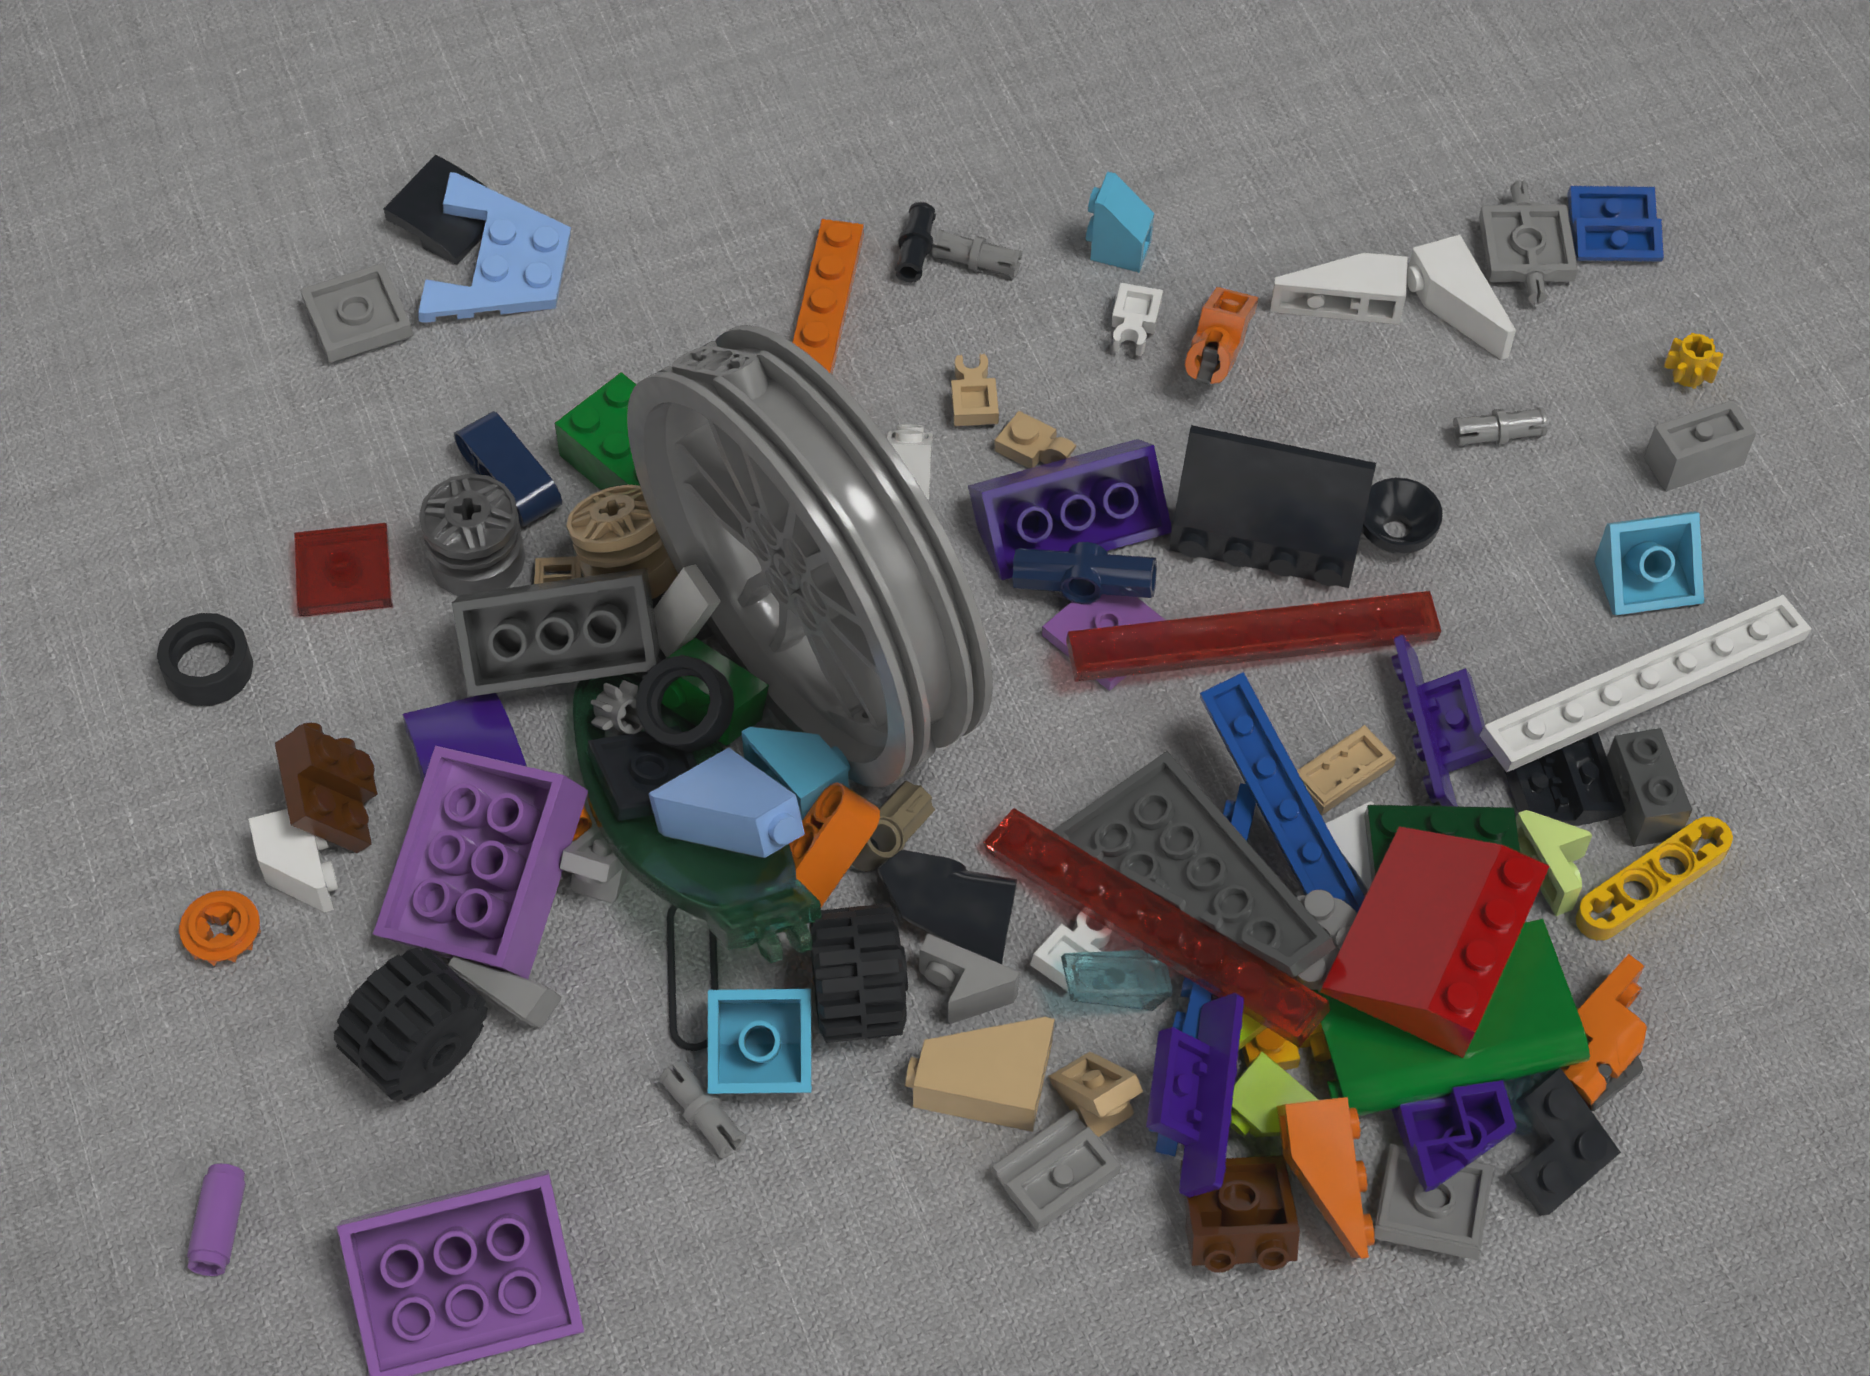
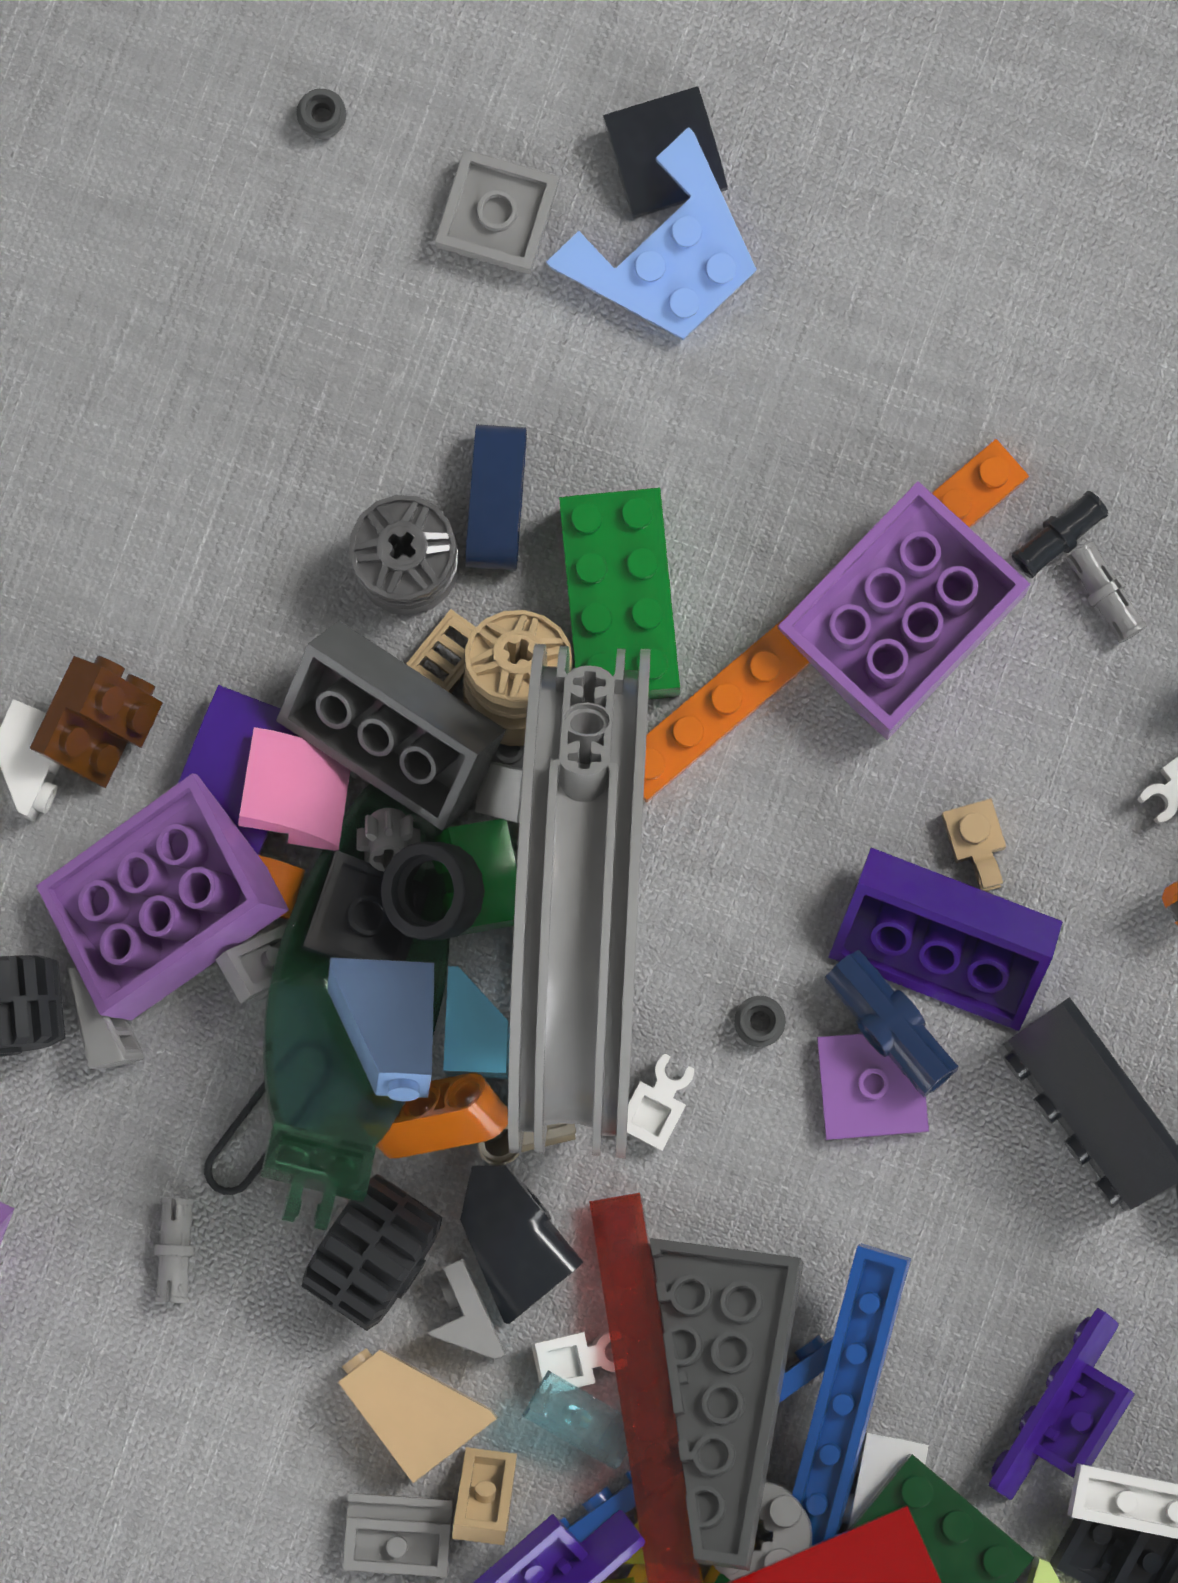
camera: 45 degrees right, 25 degrees up
(175, 338) = (321, 99): none -> dark grey plate
(196, 631) = (84, 460): black tyre -> none
(343, 569) = (283, 488): clear red plate -> none
(521, 722) = (294, 790): none -> bright pink slope
(759, 1041) = (248, 1243): medium azure slope -> none
(863, 327) = (903, 609): none -> medium lavender slope
(916, 452) = (843, 776): white slope -> none
(974, 394) = (963, 751): tan plate -> none
(976, 757) = (654, 1110): none -> white plate
(1000, 638) = (771, 1009): none -> dark grey plate
(1251, 636) = (984, 1202): clear red plate -> none
(1345, 768) = (946, 1385): tan plate -> none

